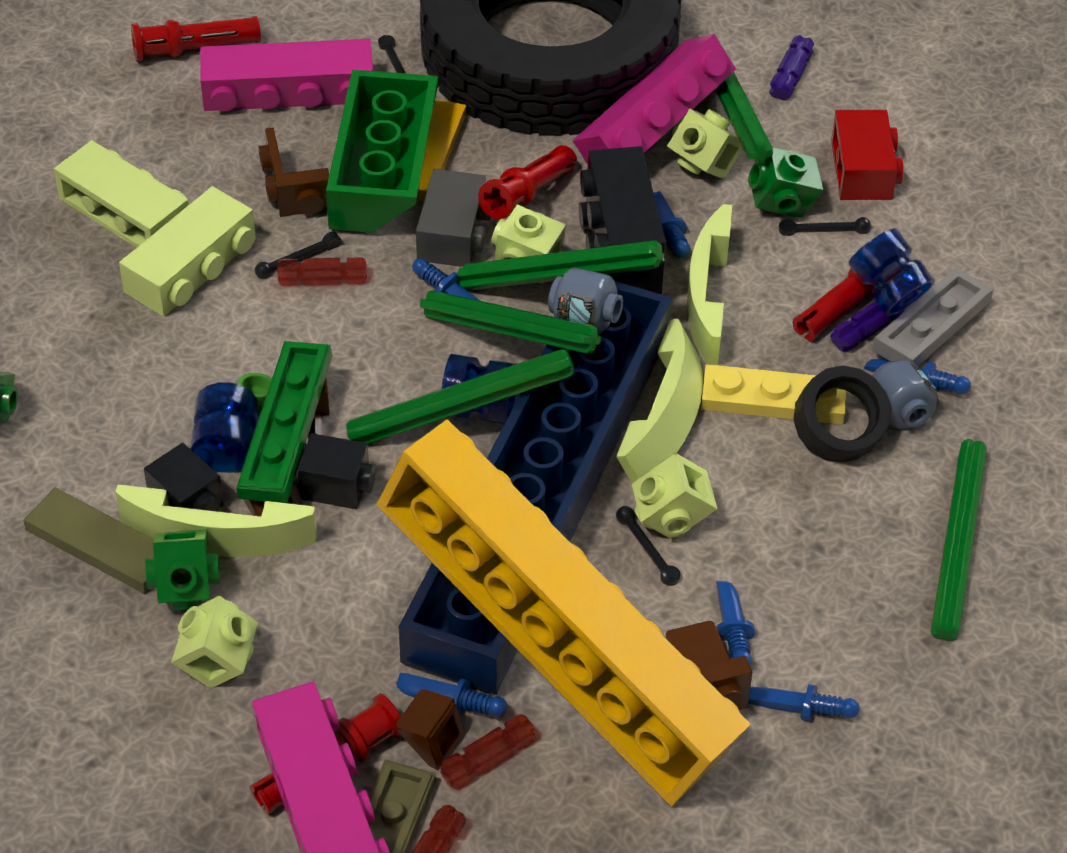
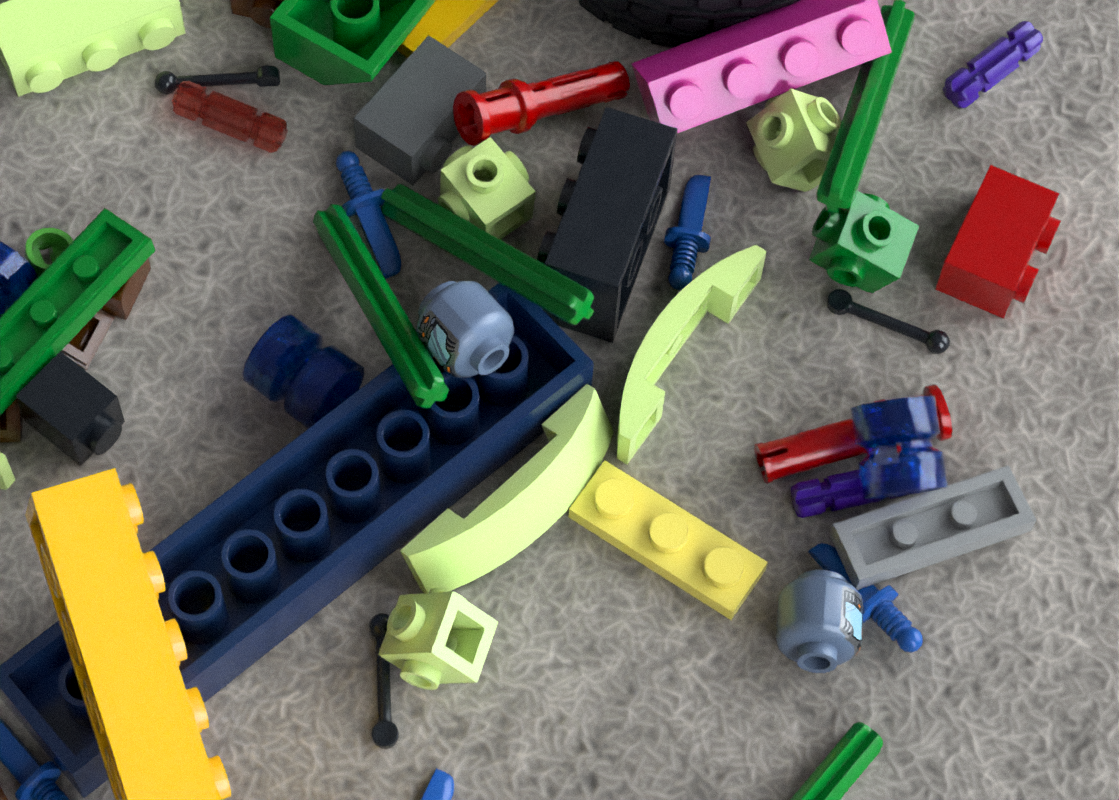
camera: 25 degrees right, 15 degrees up
(461, 397) = (259, 386): green axle -> none
(868, 392) = (730, 666): black tyre -> none

